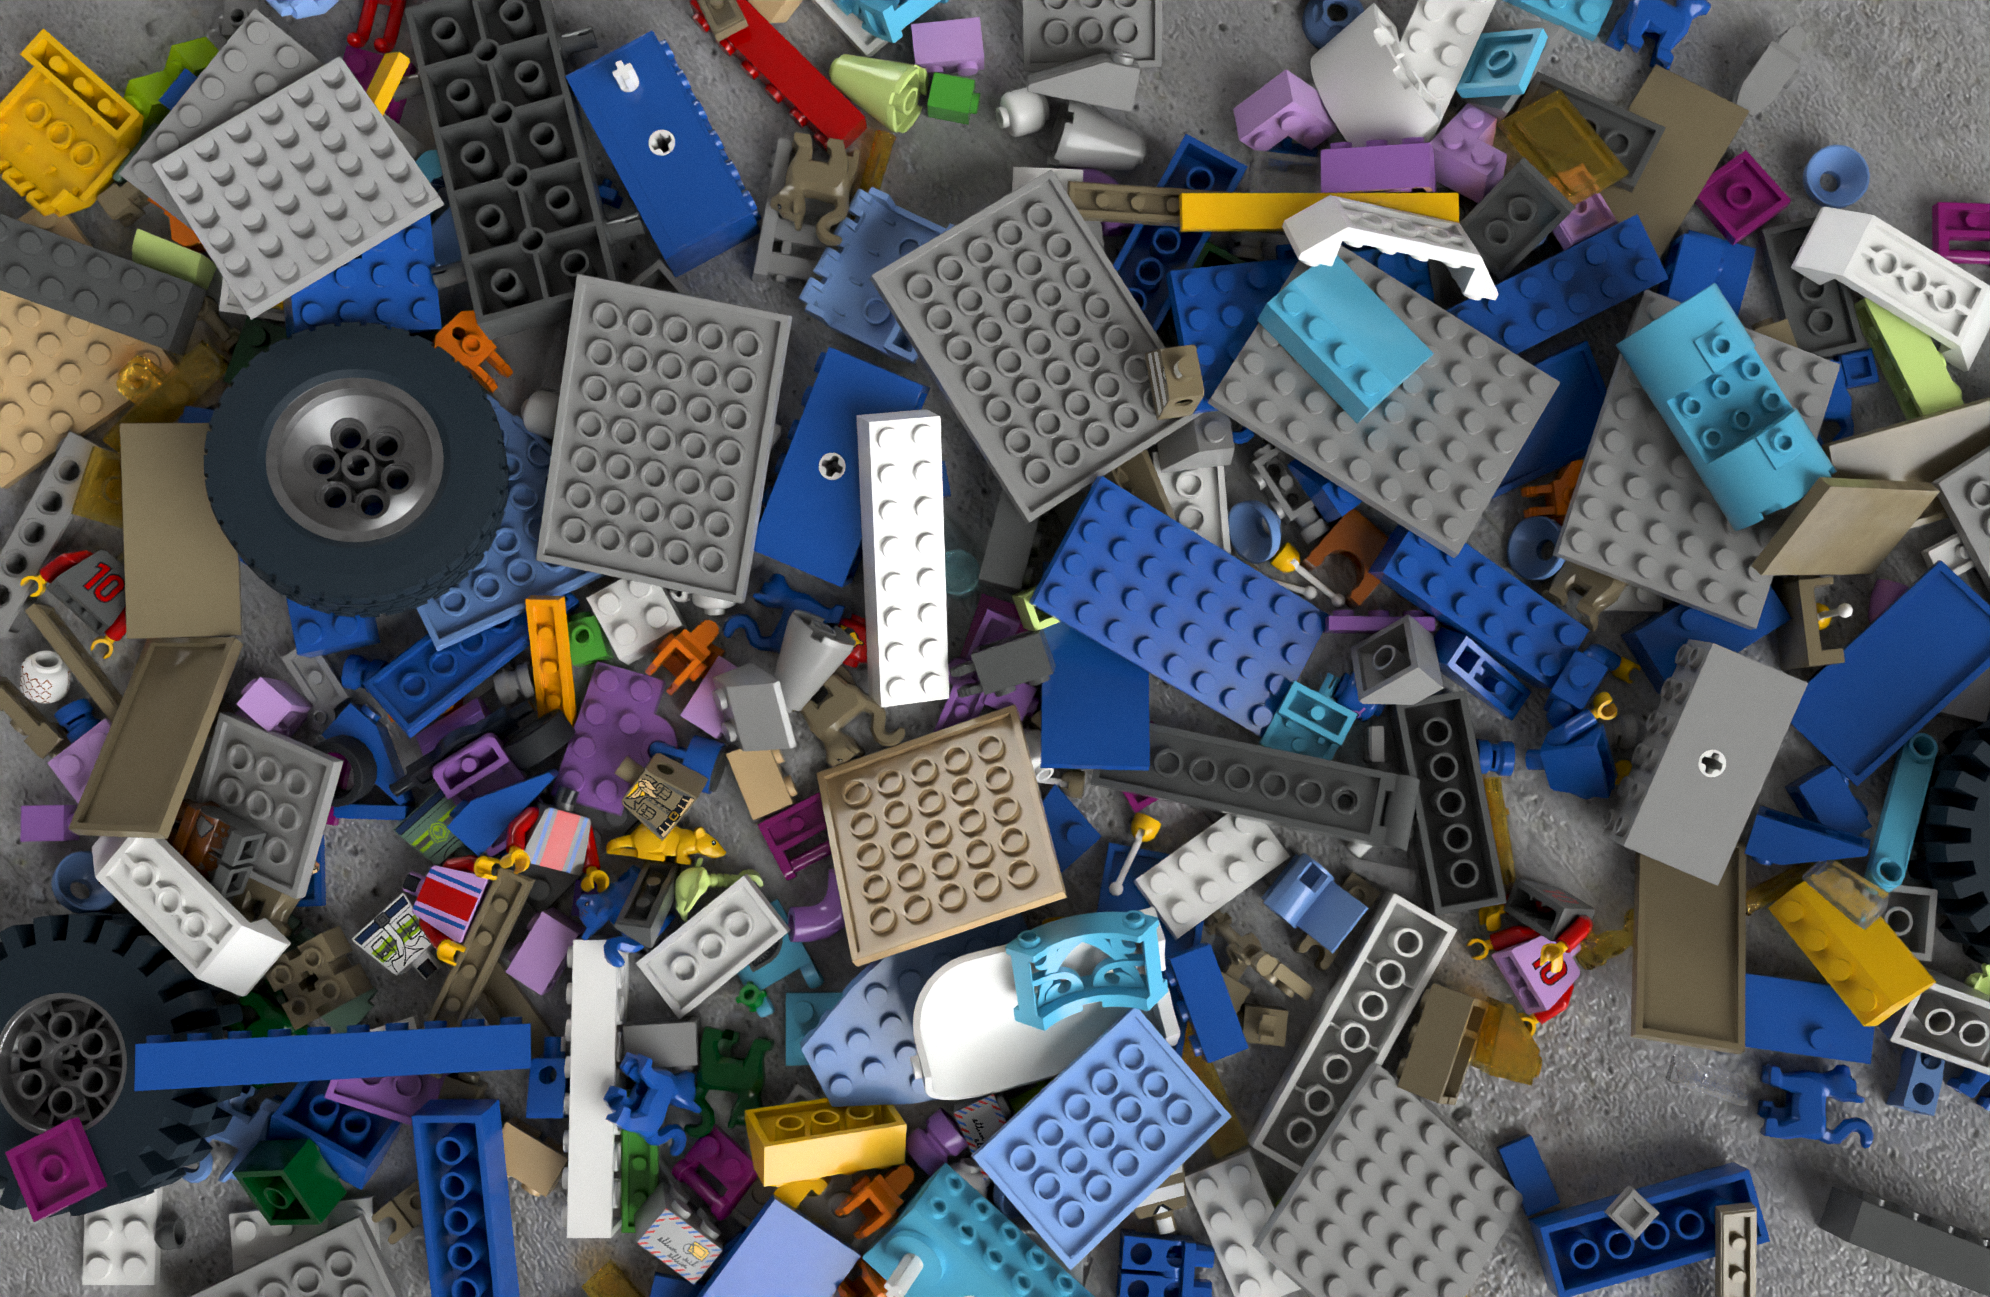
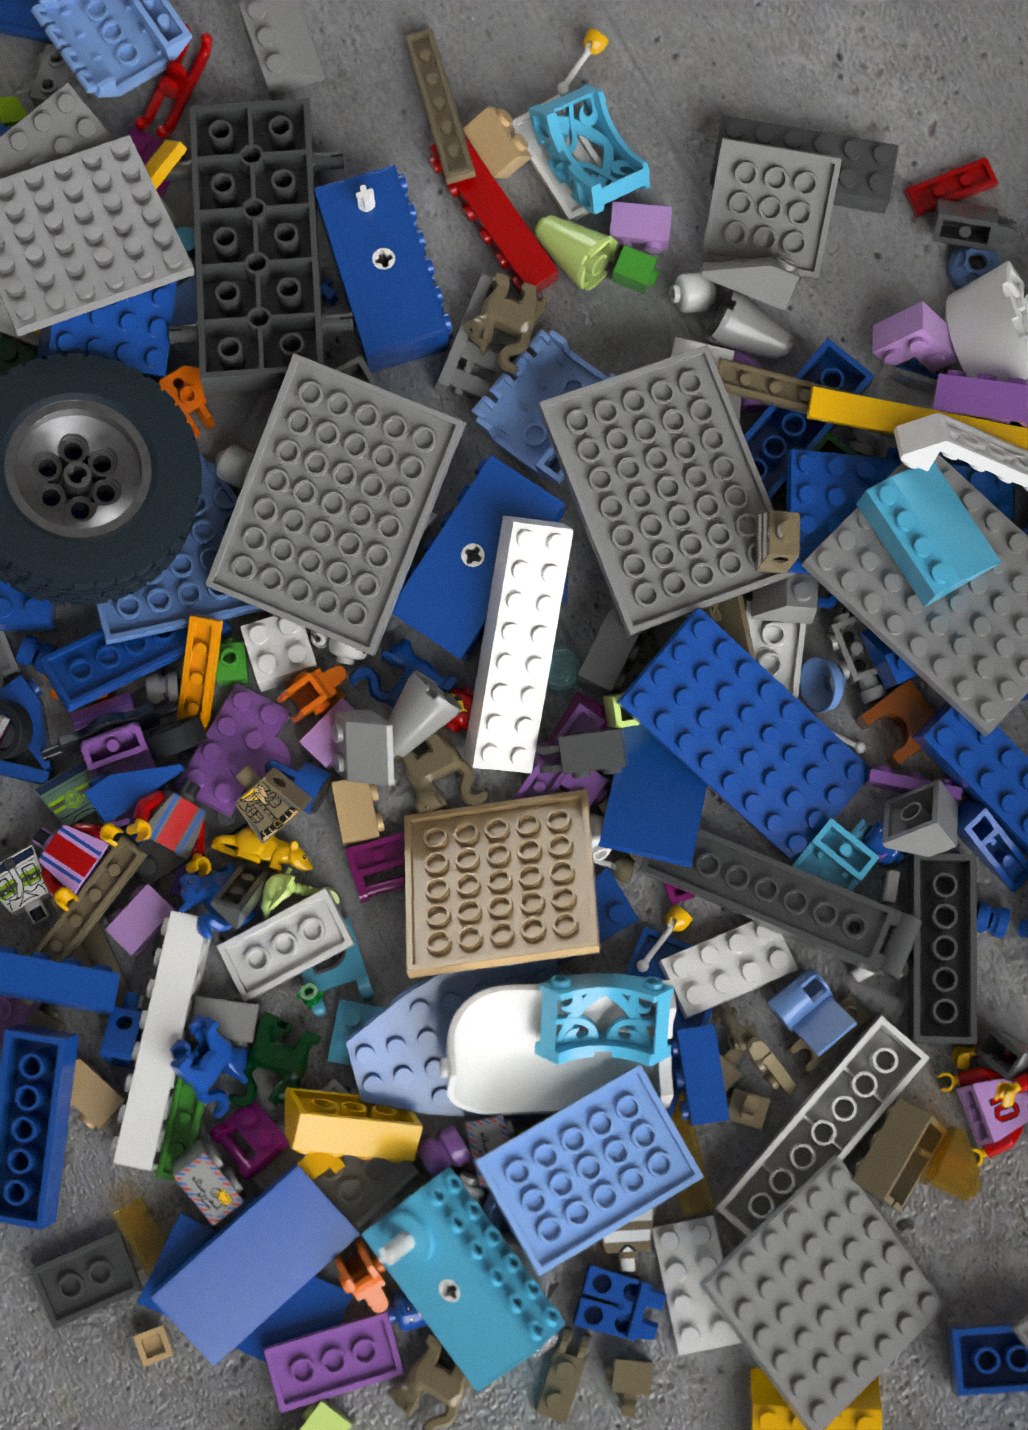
camera: 10 degrees right, 5 degrees down
(819, 920) = (383, 941): medium lavender cylinder -> none
(877, 1199) = (385, 1186): orange hinge -> none
(882, 145) = (568, 298): clear yellow pin -> none
(1288, 559) = (846, 716): hinge -> none
(1499, 822) = (985, 971): clear yellow pin -> none
(1528, 1174) = (953, 1288): blue tile -> none

